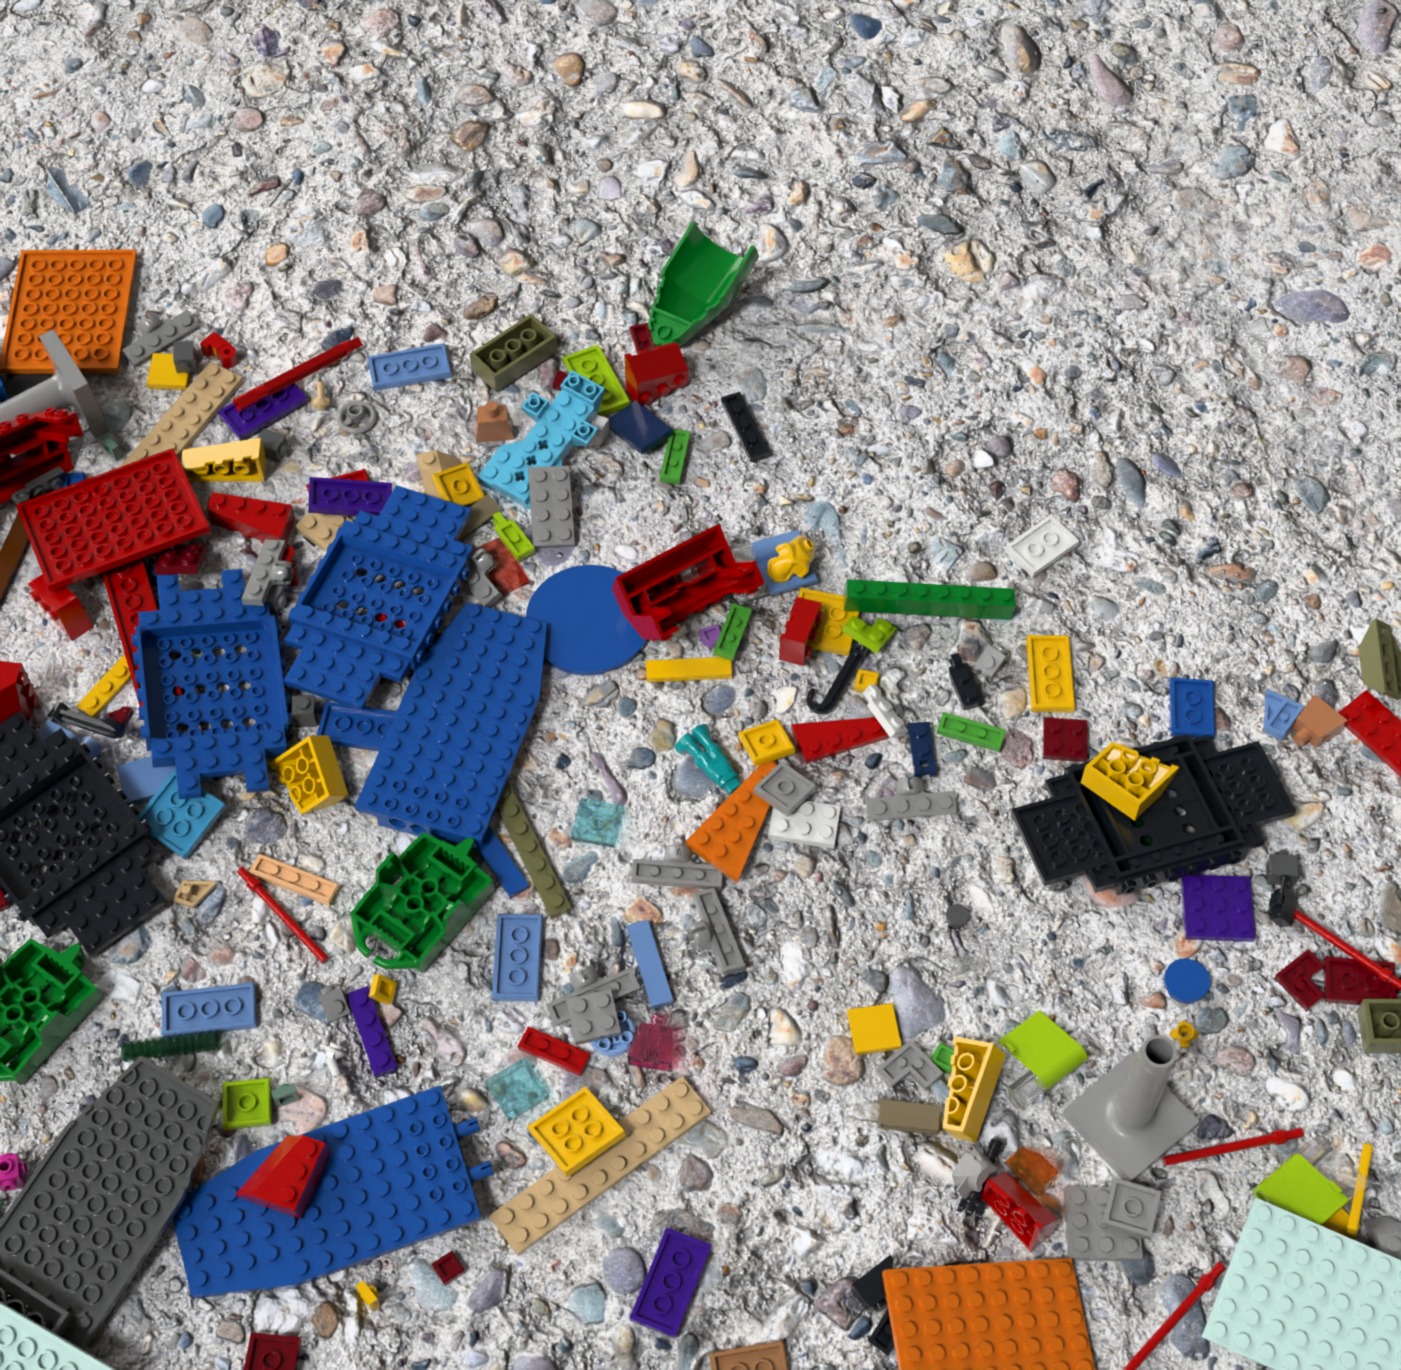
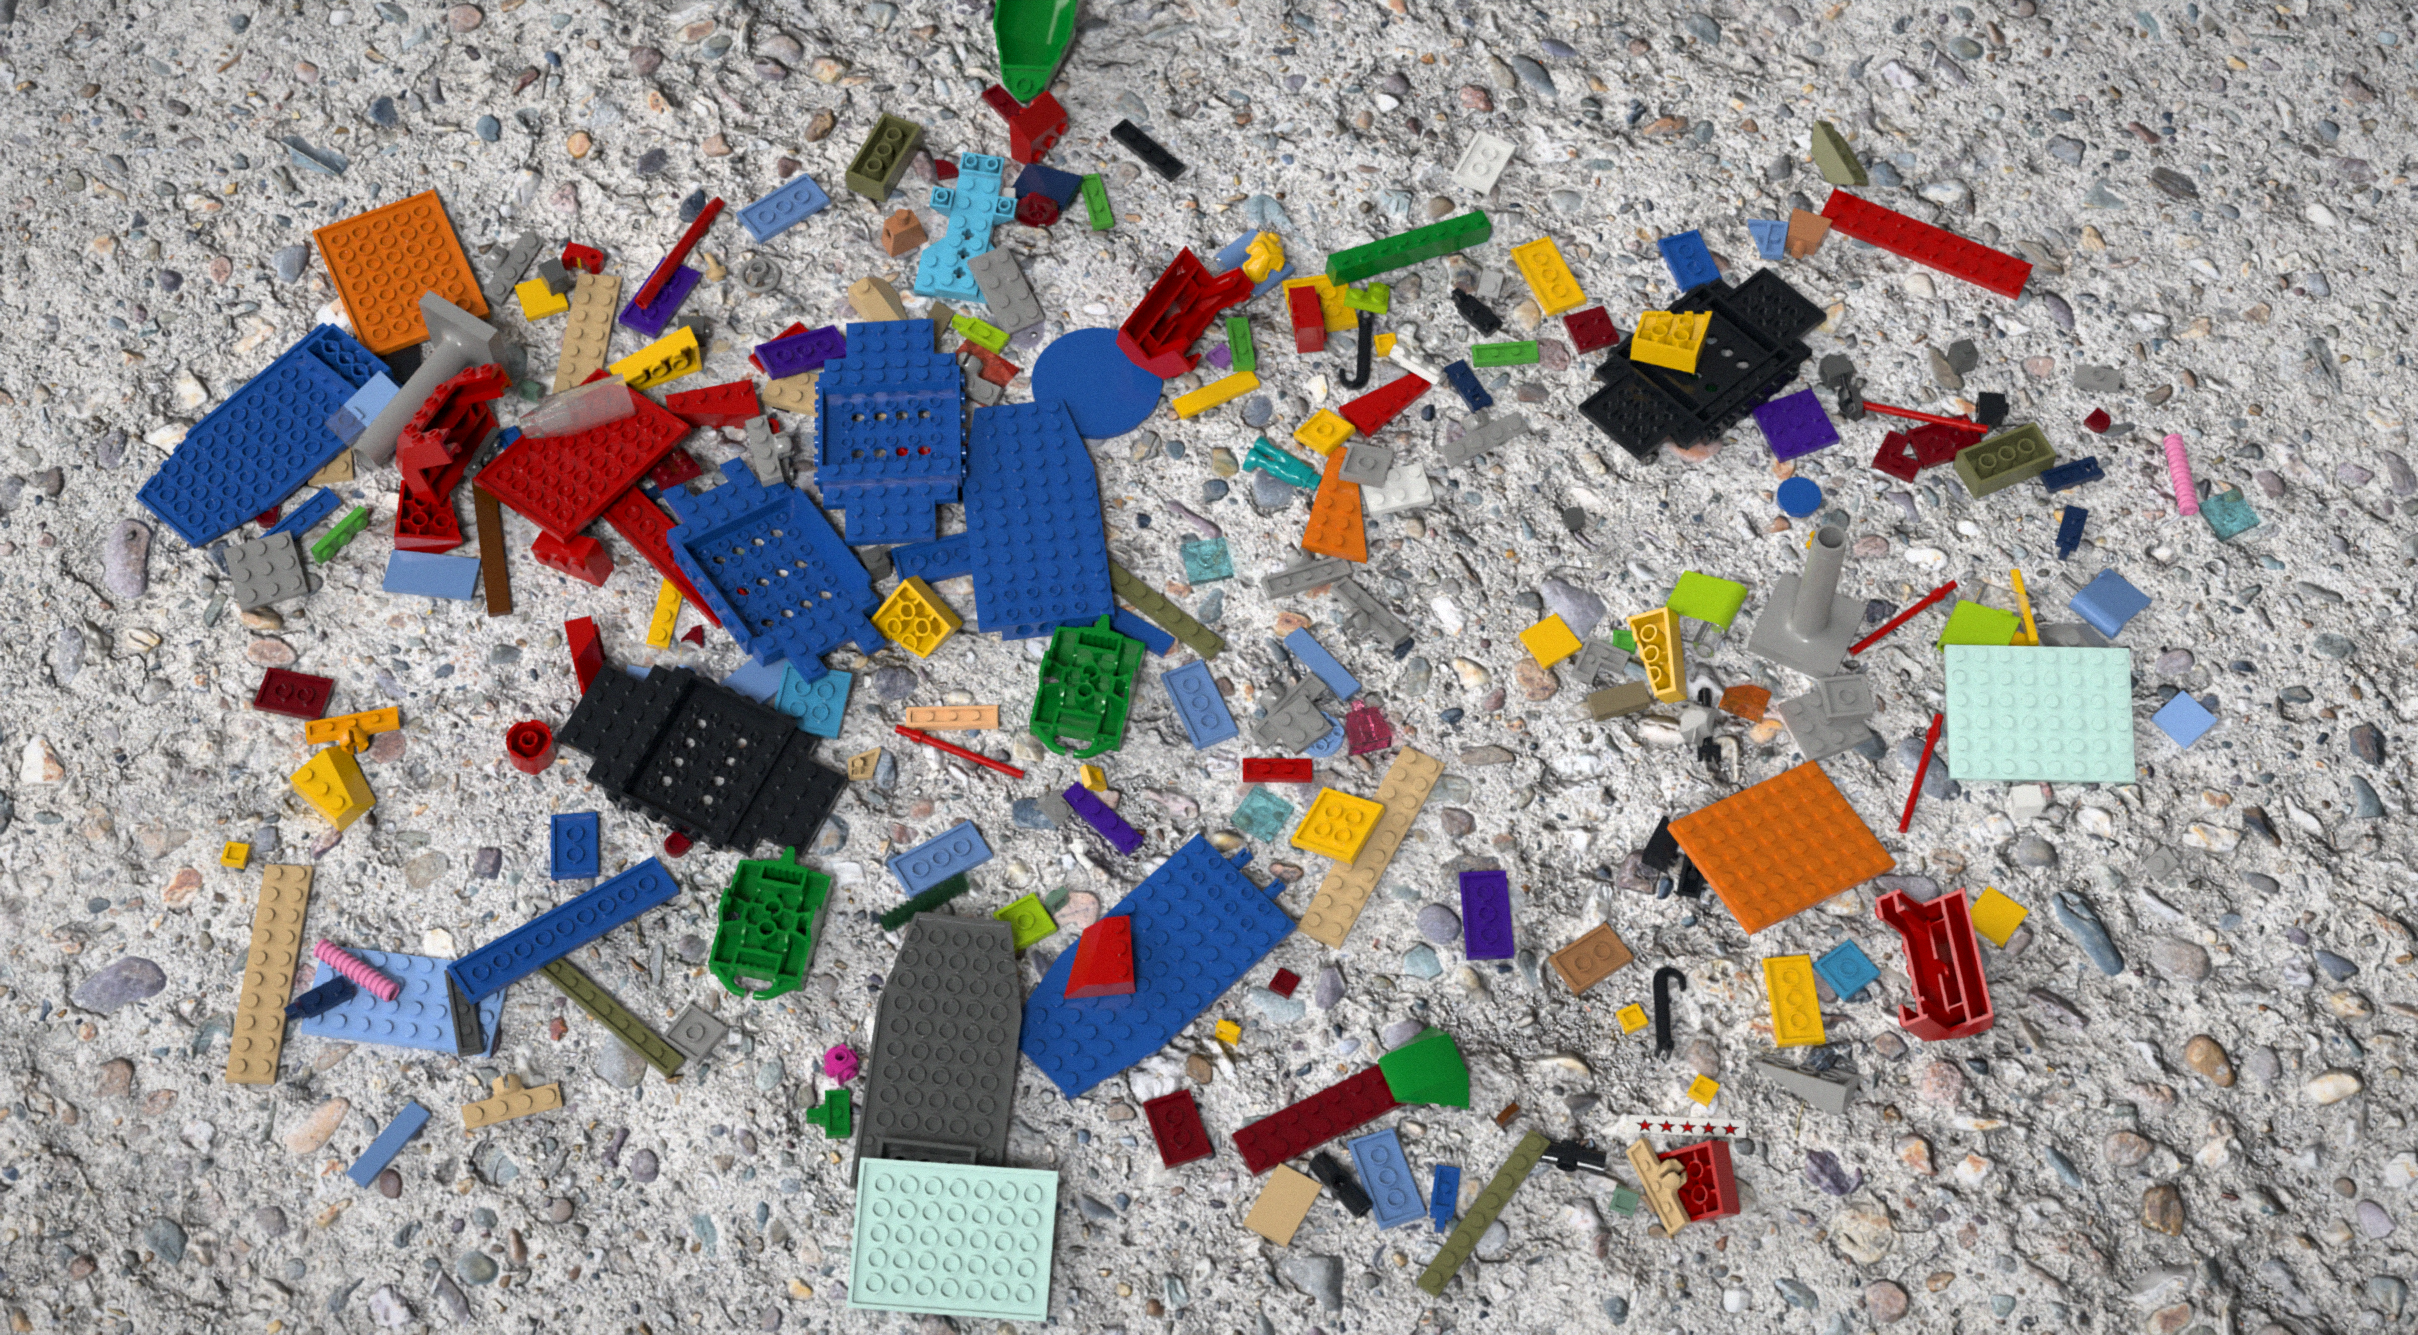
camera: 25 degrees left, 0 degrees up
(104, 725) = (640, 653): black piece -> none
(128, 477) = (579, 409): none -> clear piece
(458, 485) = (903, 302): yellow tile -> none
(595, 367) = (966, 139): lime plate -> none
(616, 445) = (1045, 209): none -> dark red plate
(1019, 1210) = (1753, 738): red wedge -> none

